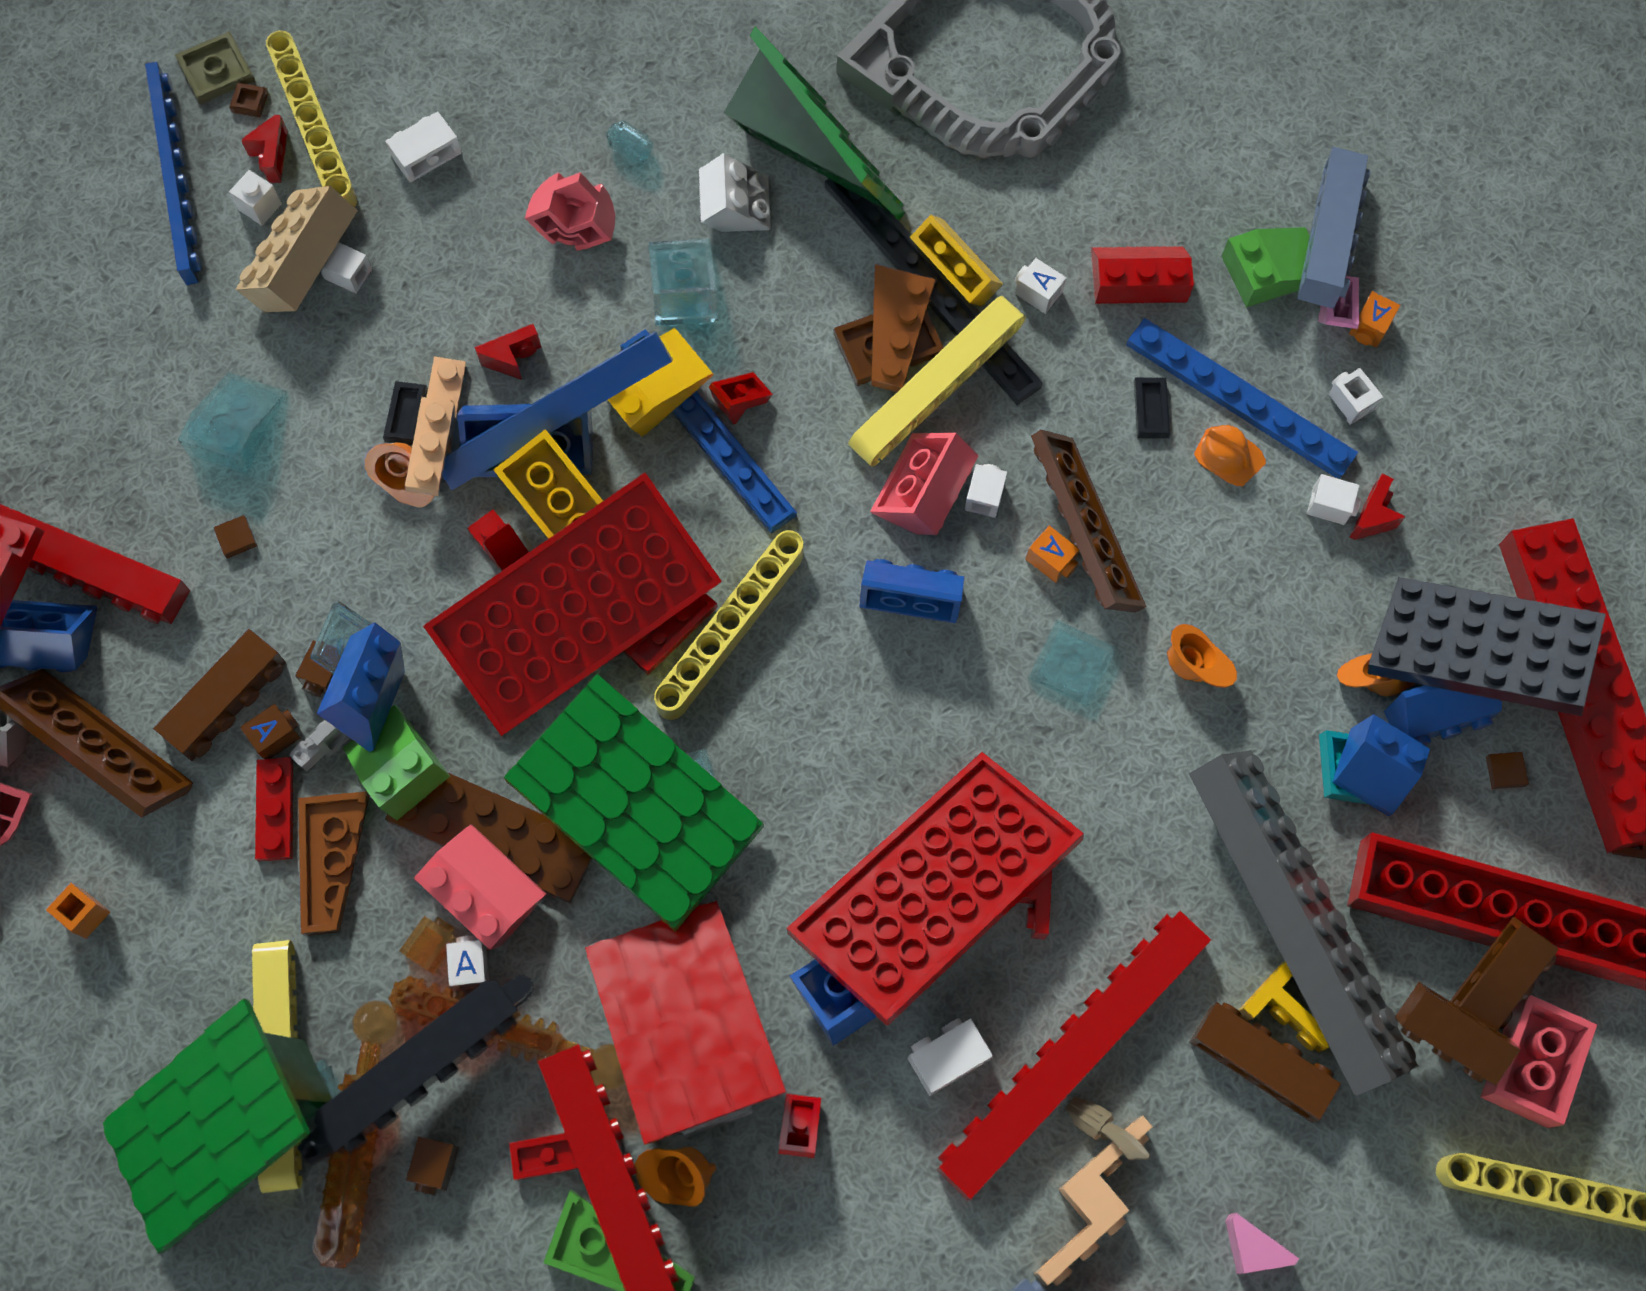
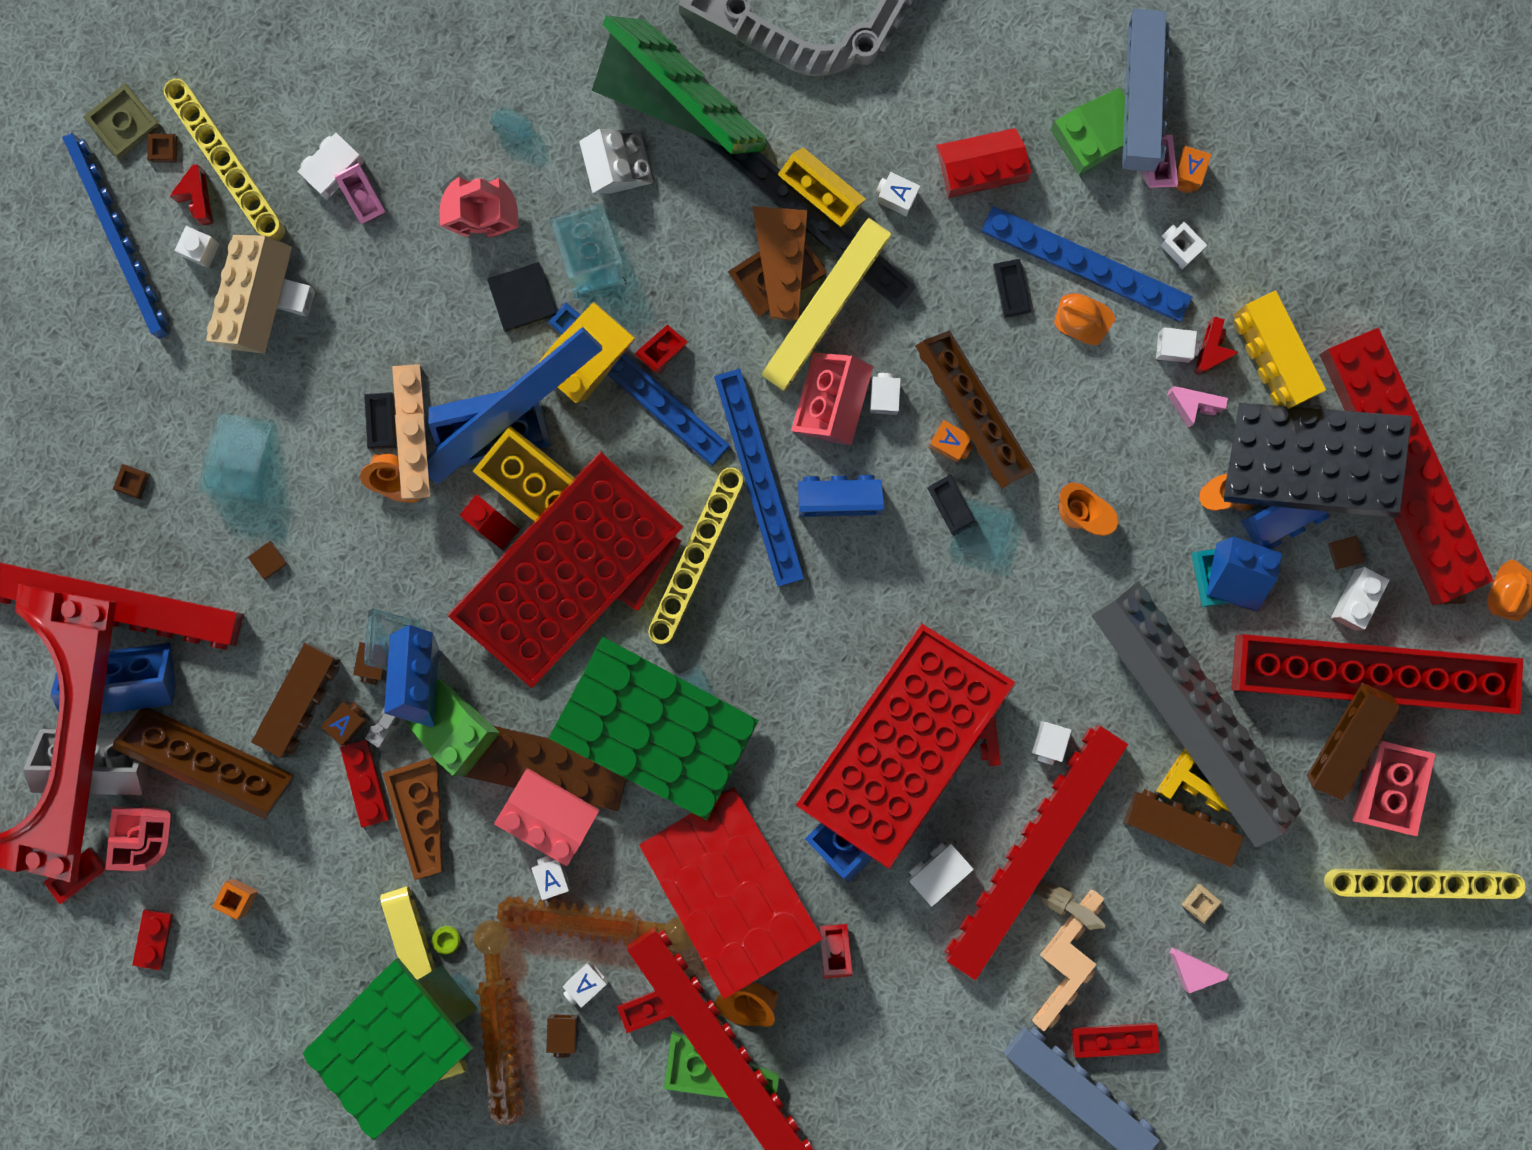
camera: 10 degrees left, 15 degrees up
(108, 424) = (131, 481): none -> reddish brown tile
(320, 1018) = (446, 940): none -> lime tile
(415, 1067) = (534, 969): black hinge -> none
(428, 943) = (517, 867): clear orange brick -> none
(446, 175) = (359, 193): none -> bright pink slope
(475, 1106) = (584, 984): none -> white brick
(501, 352) = (448, 351): red slope -> none
(597, 315) = (521, 296): none -> black tile
(822, 556) = (758, 477): none -> blue plate
(1042, 625) = (952, 505): none -> black tile
(1115, 922) = (1051, 742): none -> white brick
(1275, 1164) = (1201, 903): none -> tan tile
(1340, 561) = (1188, 401): none -> bright pink slope
(1452, 523) = (1278, 351): none -> yellow brick
(1456, 1035) = (1327, 785): reddish brown brick -> none
(1519, 824) = (1360, 599): none -> white brick

